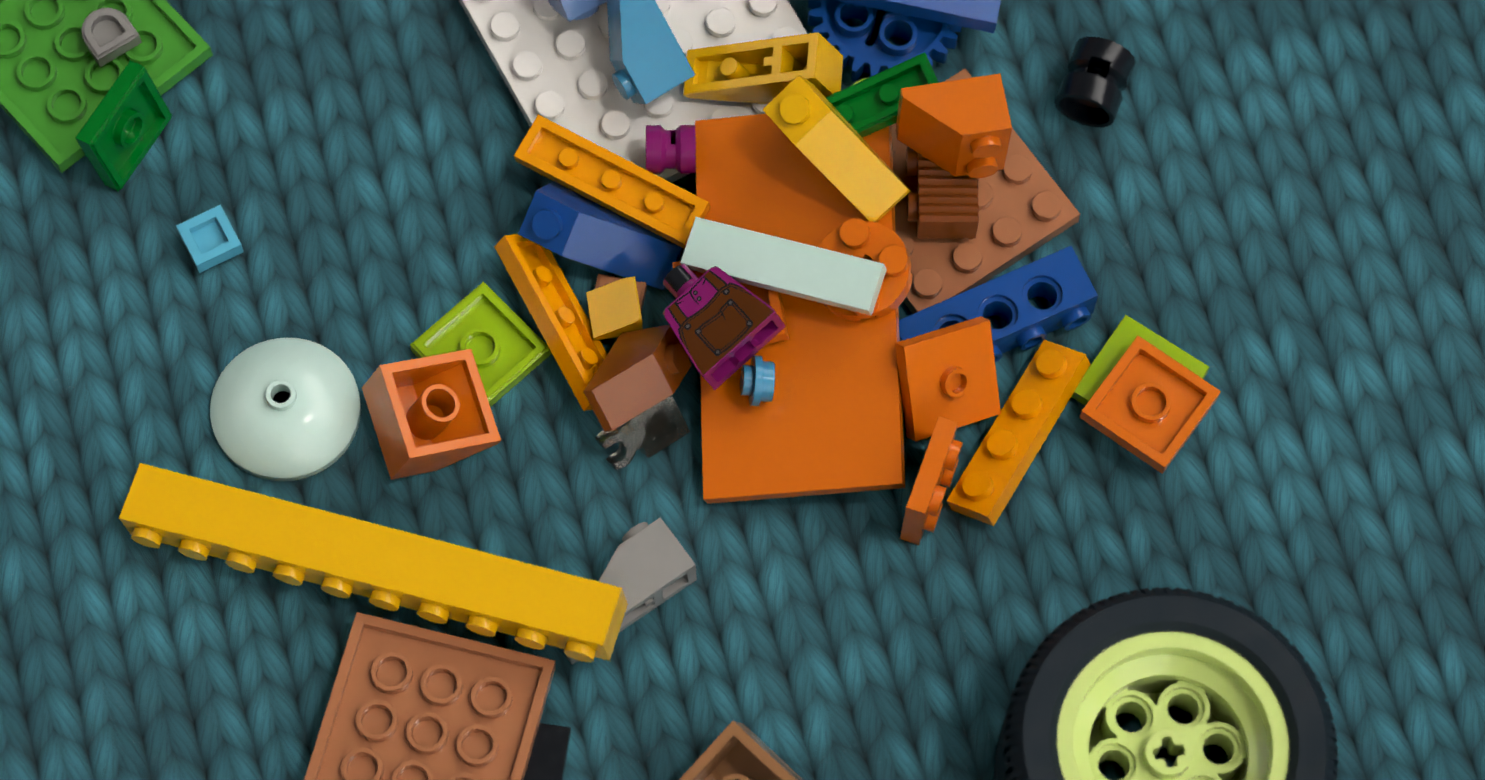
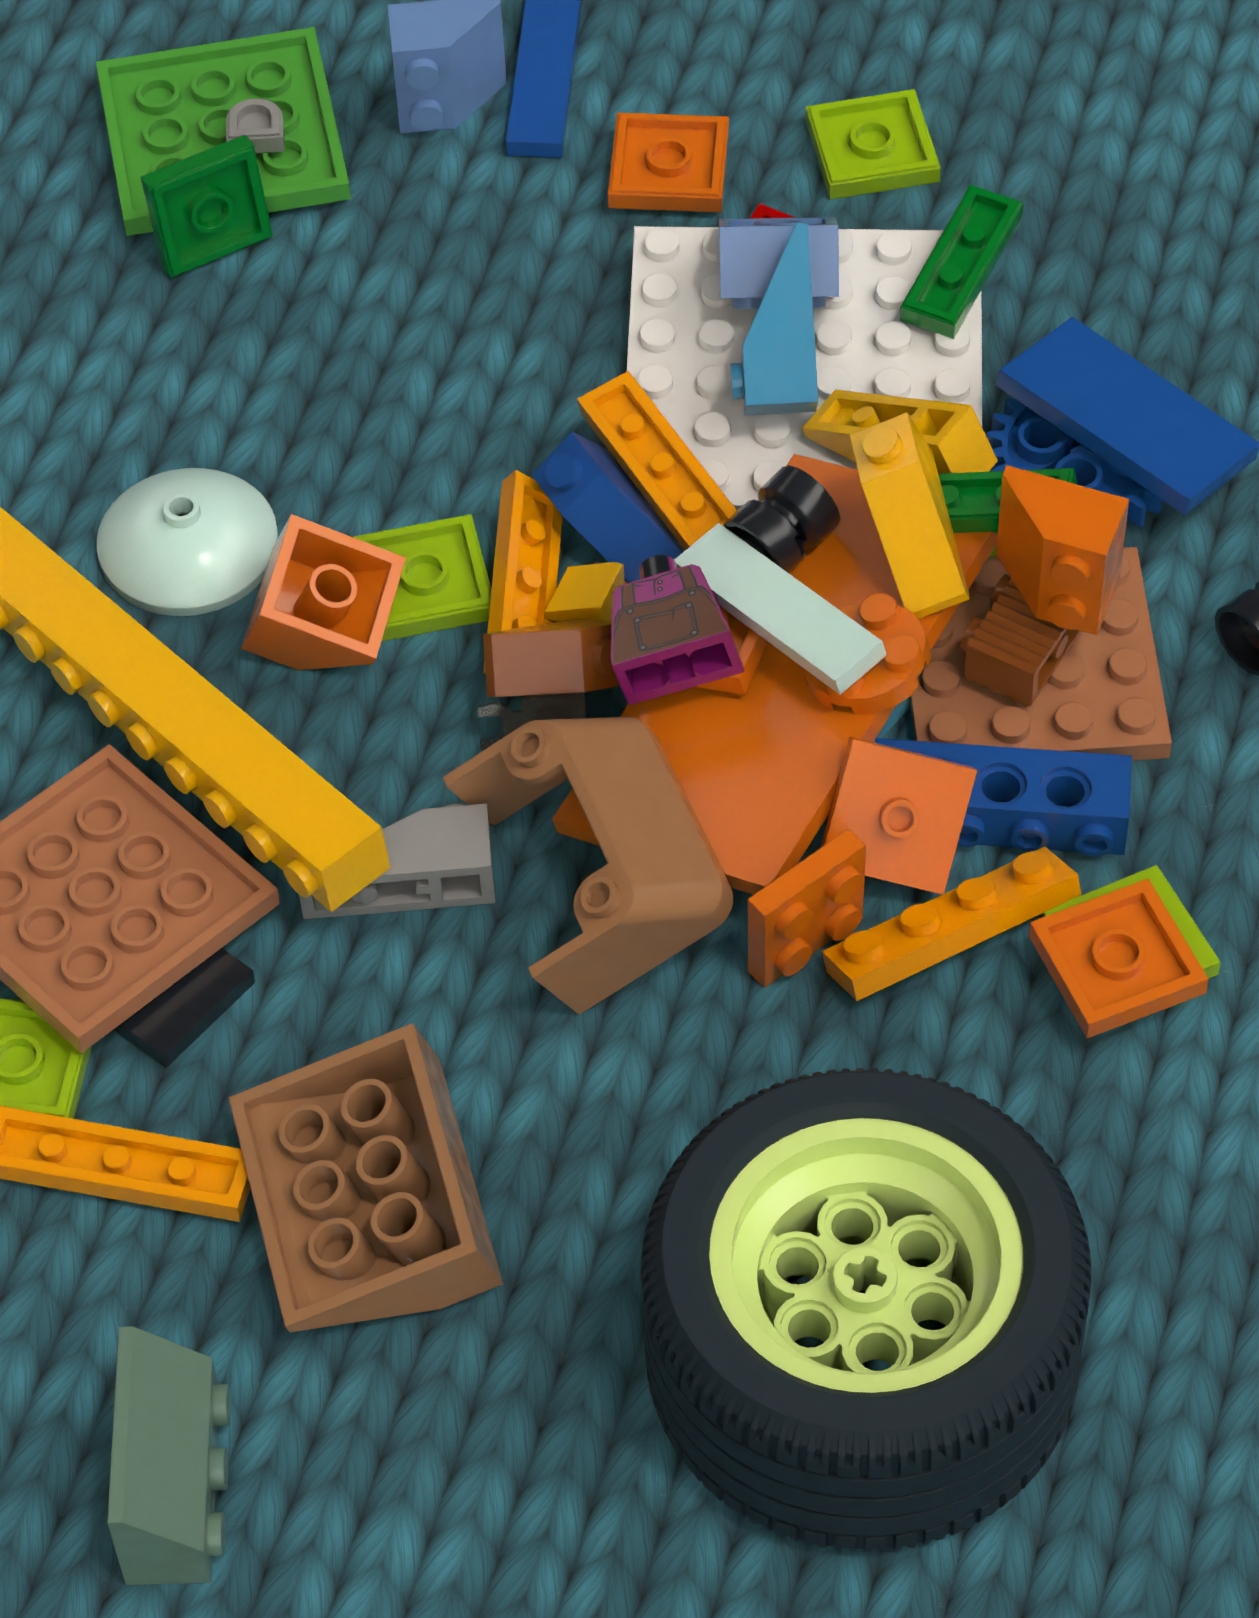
camera: 35 degrees right, 15 degrees down
(209, 238) = (223, 351): medium azure plate -> none
(671, 149) = (744, 464): magenta wheel -> none
(738, 185) = (788, 515): none -> black wheel
(758, 380) = (681, 716): dark azure plate -> none
(788, 479) = (660, 872): none -> medium nougat windscreen

